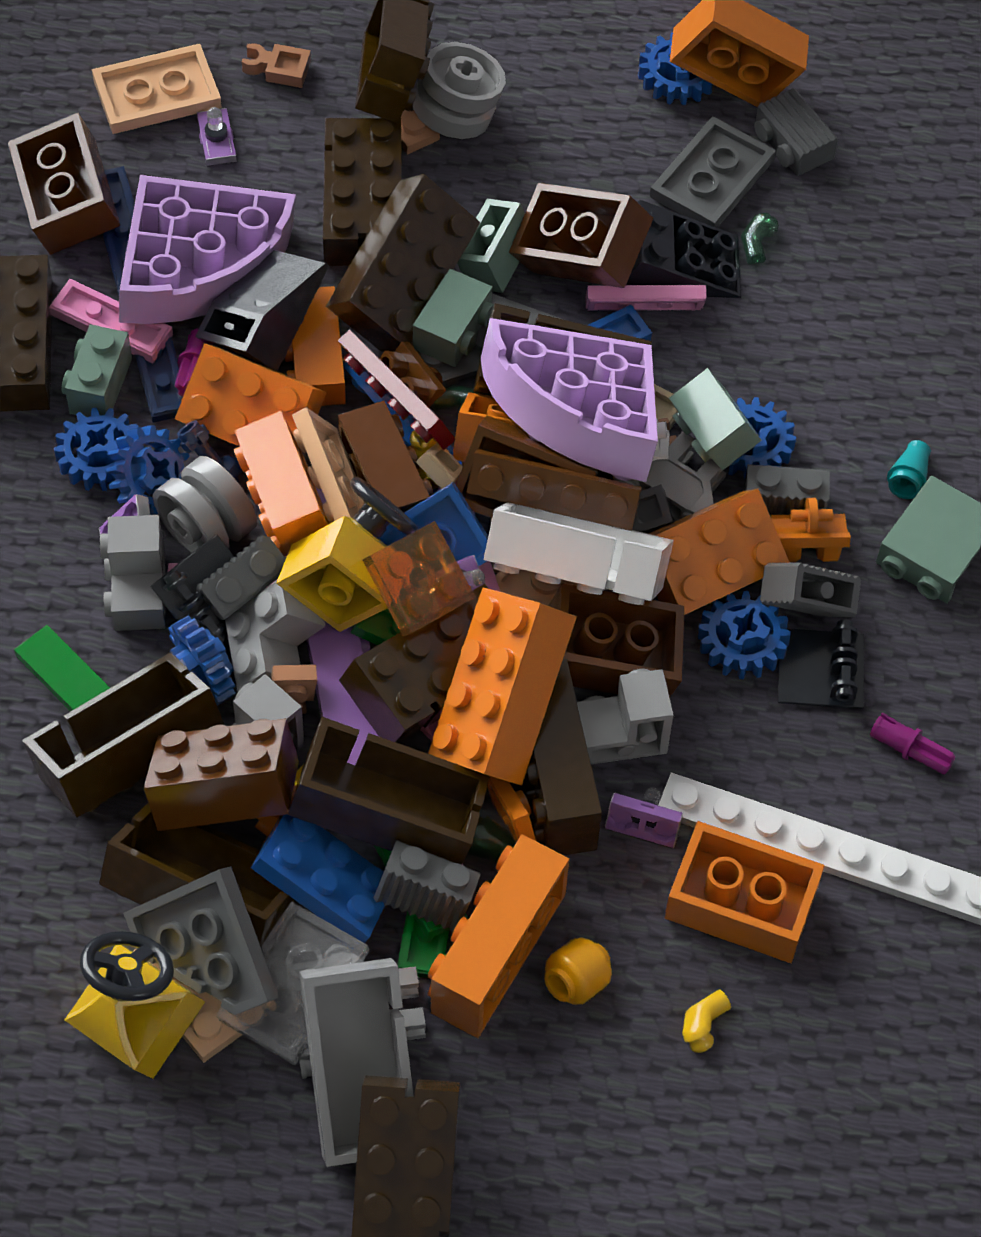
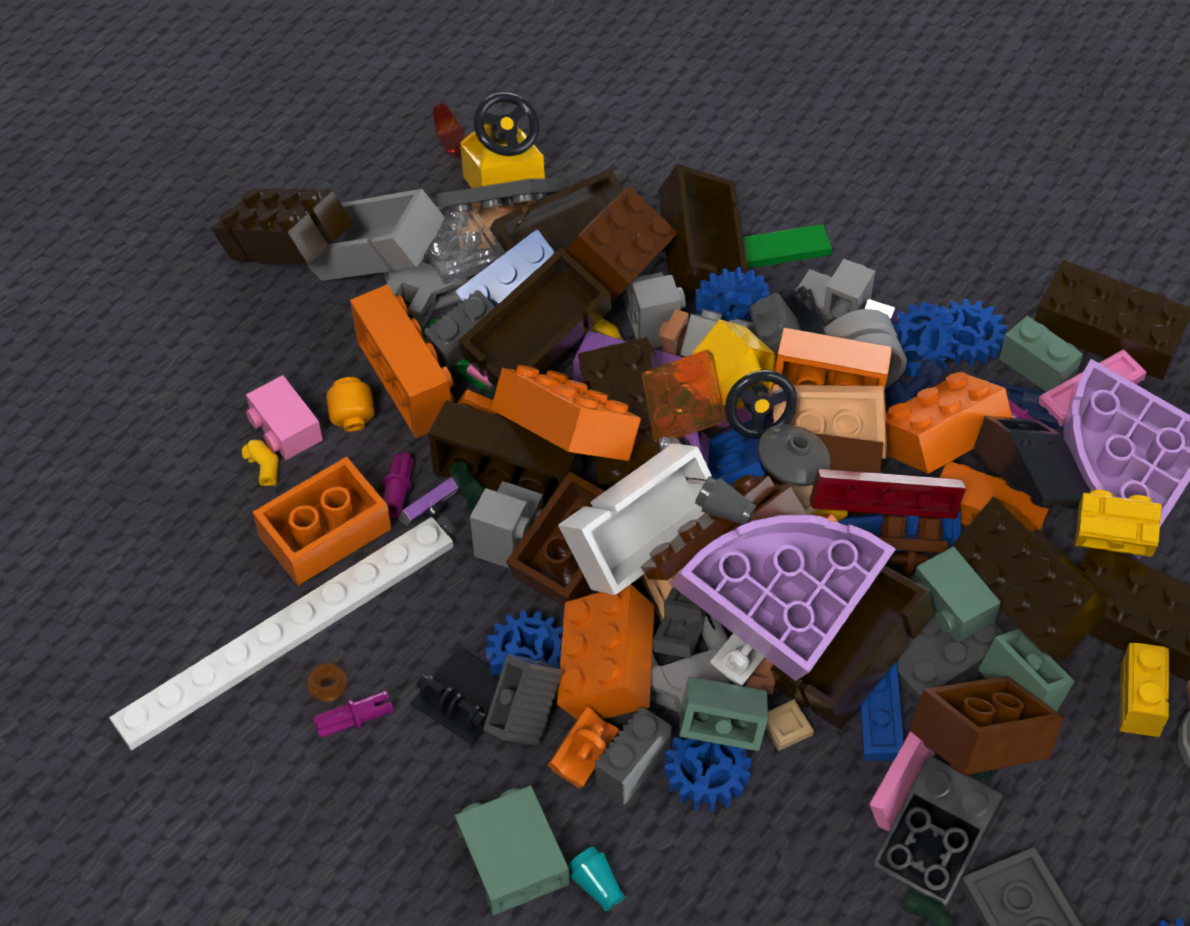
camera: 125 degrees right, 5 degrees down
(103, 1115) = (448, 130): none -> clear red helmet
(306, 210) = (1118, 523): none -> yellow brick
(412, 469) = (793, 454): none -> dark grey dish
(449, 162) = (1144, 689): none -> yellow brick
(541, 461) = (724, 501): none -> dark grey cone
(606, 786) = (468, 487): none -> clear green arm
(641, 865) = (397, 483): none -> magenta axle
(642, 1027) = (283, 417): none -> bright pink brick
(900, 778) = (327, 672): none -> clear orange plate

